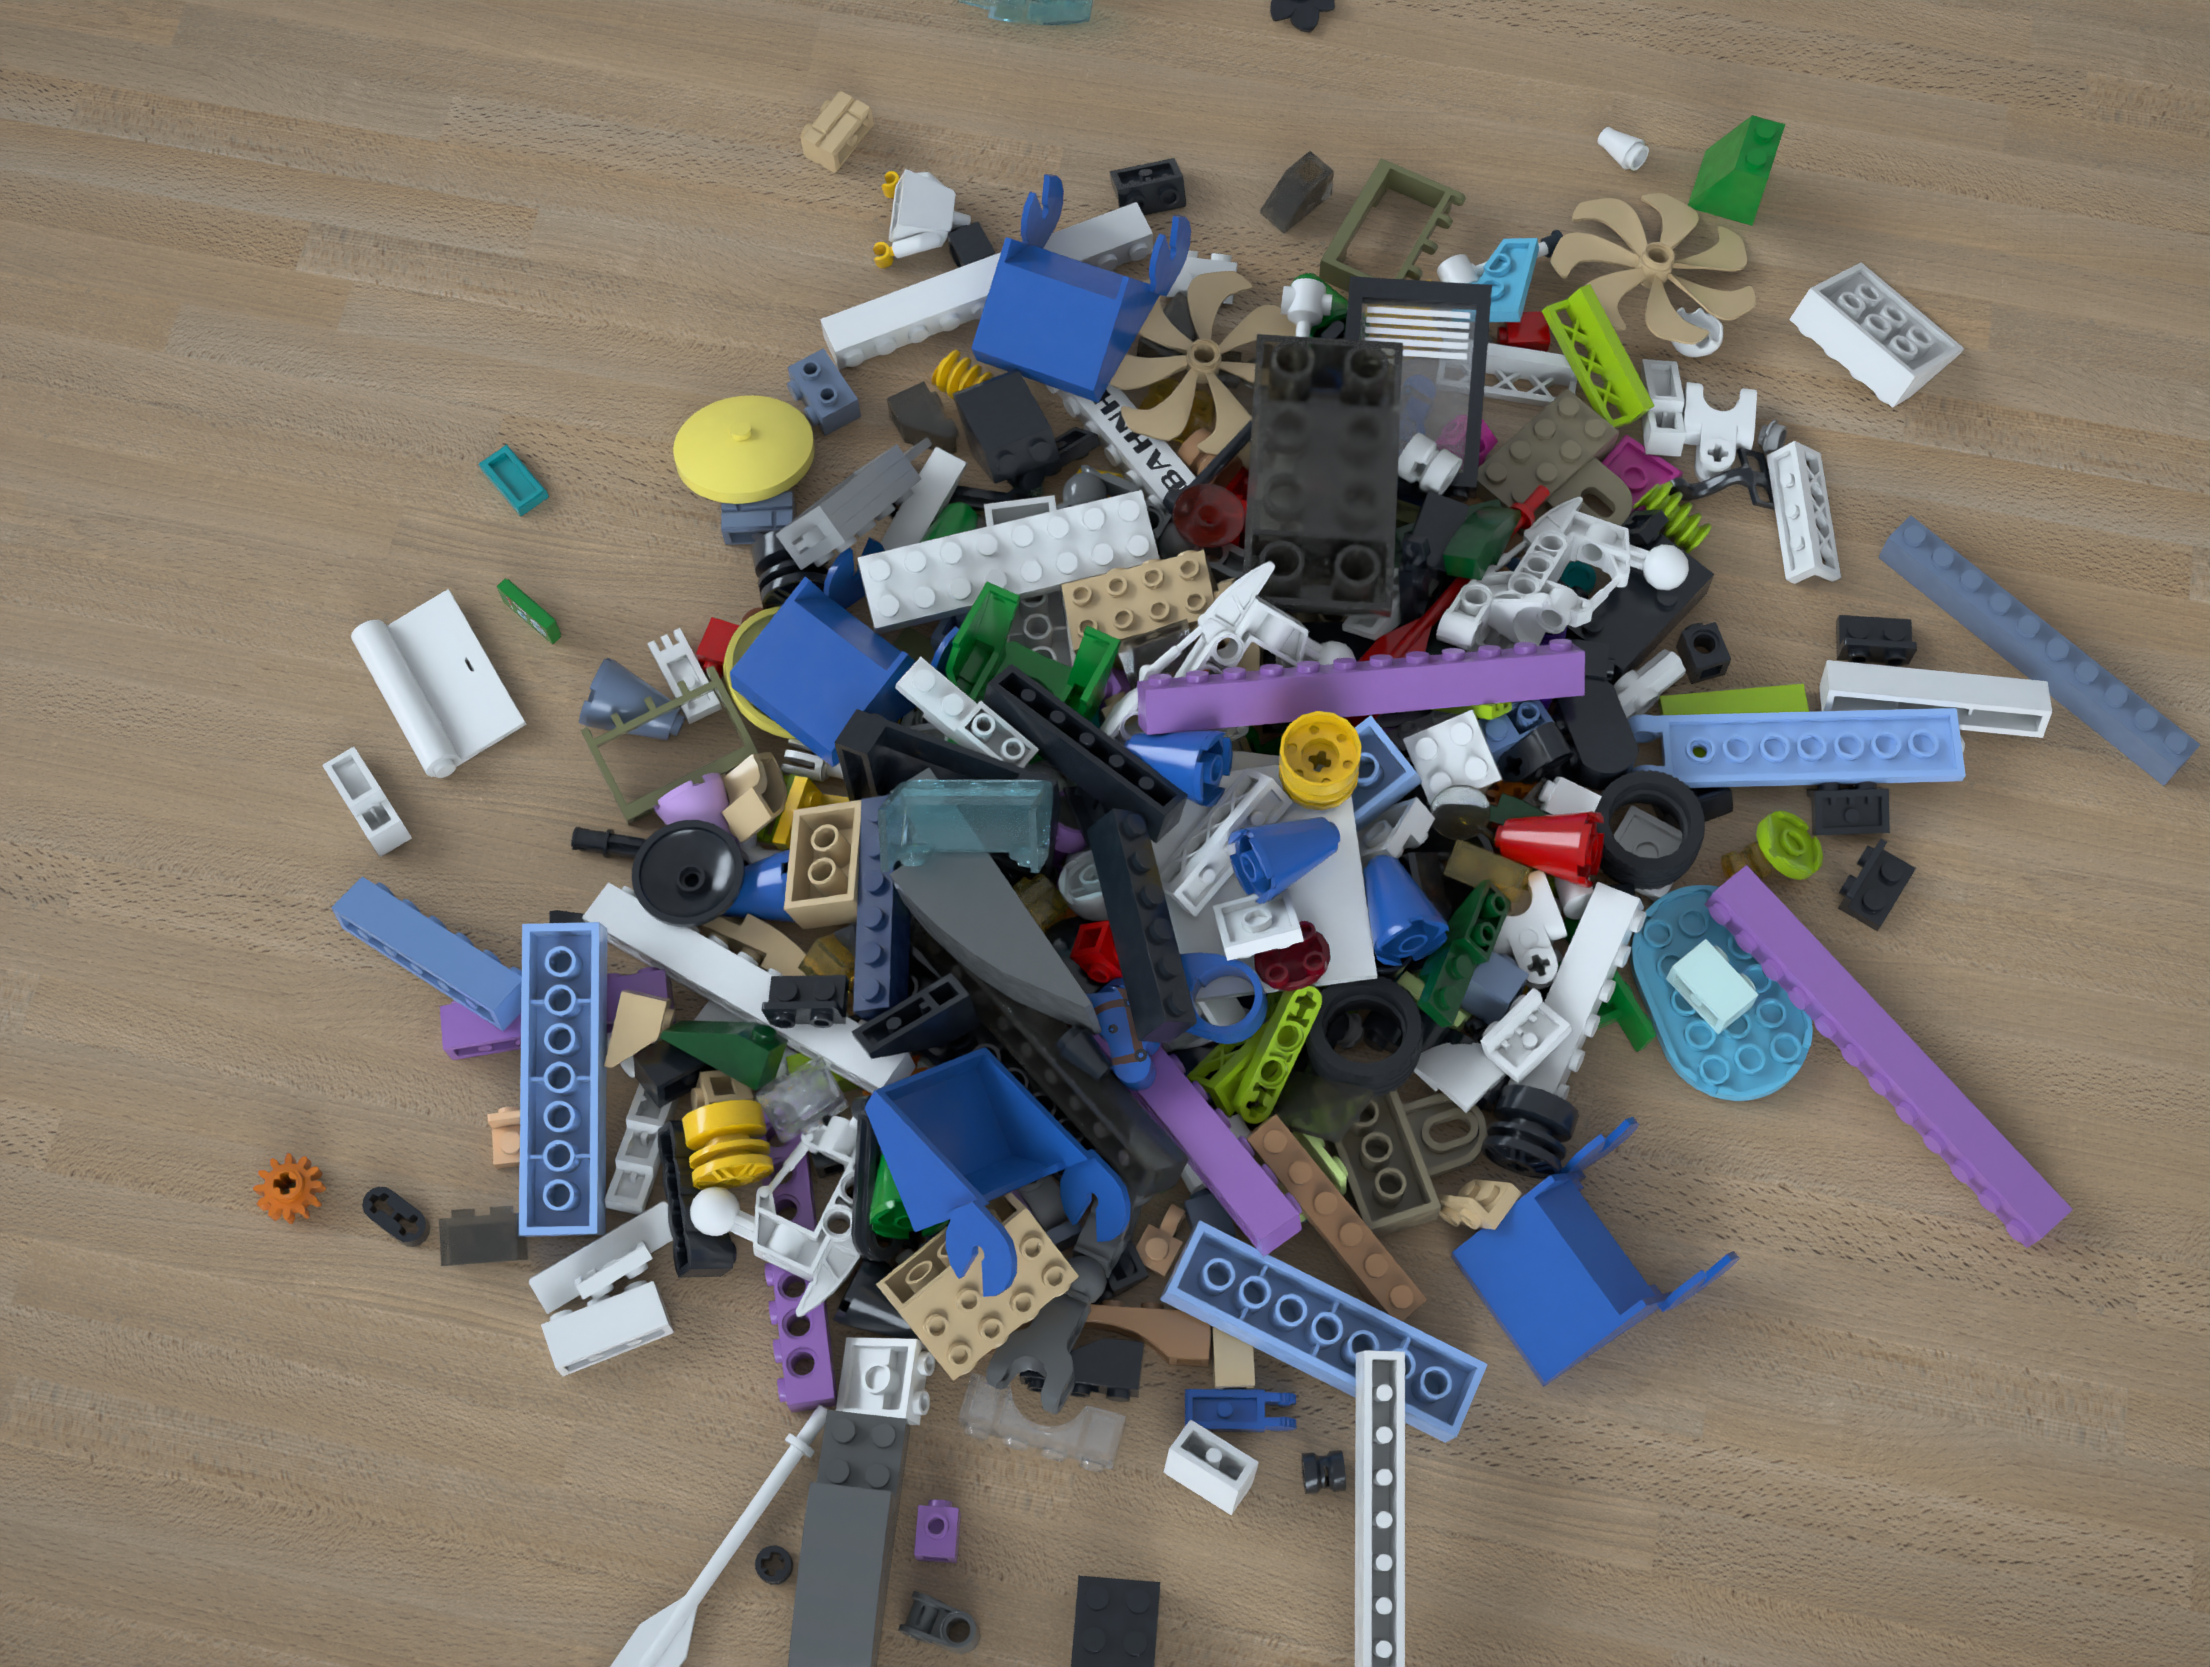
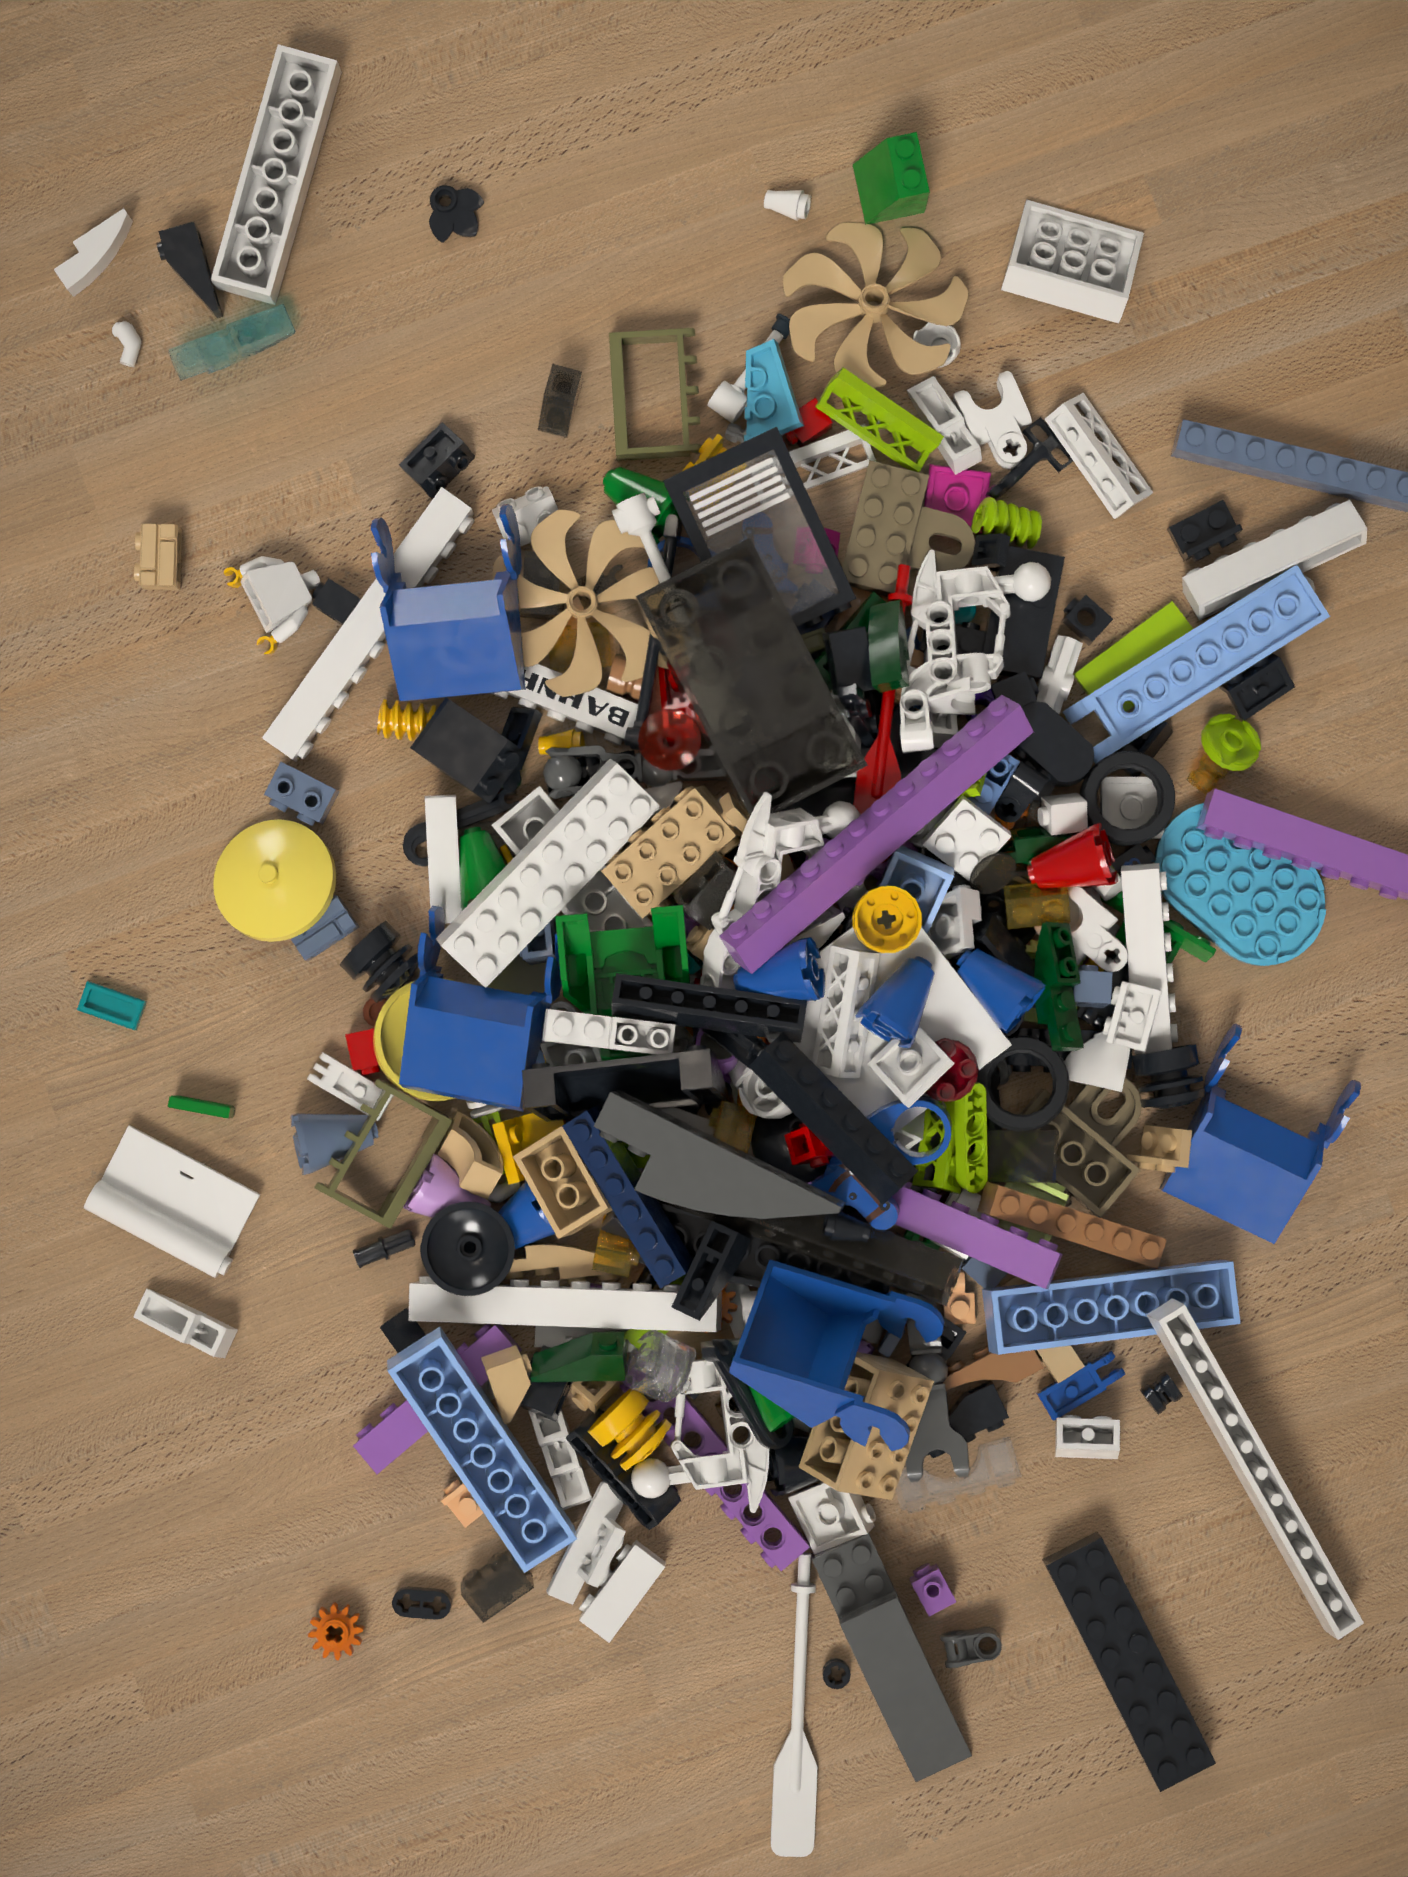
camera: 30 degrees left, 20 degrees up
(431, 951) = (320, 1412): medium blue brick -> none
(807, 1000) = (621, 1296): black bracket -> none
(852, 507) = (399, 889): light grey piece -> none
(919, 415) = (390, 772): clear smoke slope -> none
(966, 818) = (667, 1118): clear light blue windscreen -> none
(1427, 465) = (814, 609): white wheel -> none
(1712, 986) = (1236, 889): light aqua brick -> none
(1772, 436) = (1041, 401): light grey plate -> none
(1876, 887) = (1306, 733): black bracket -> none

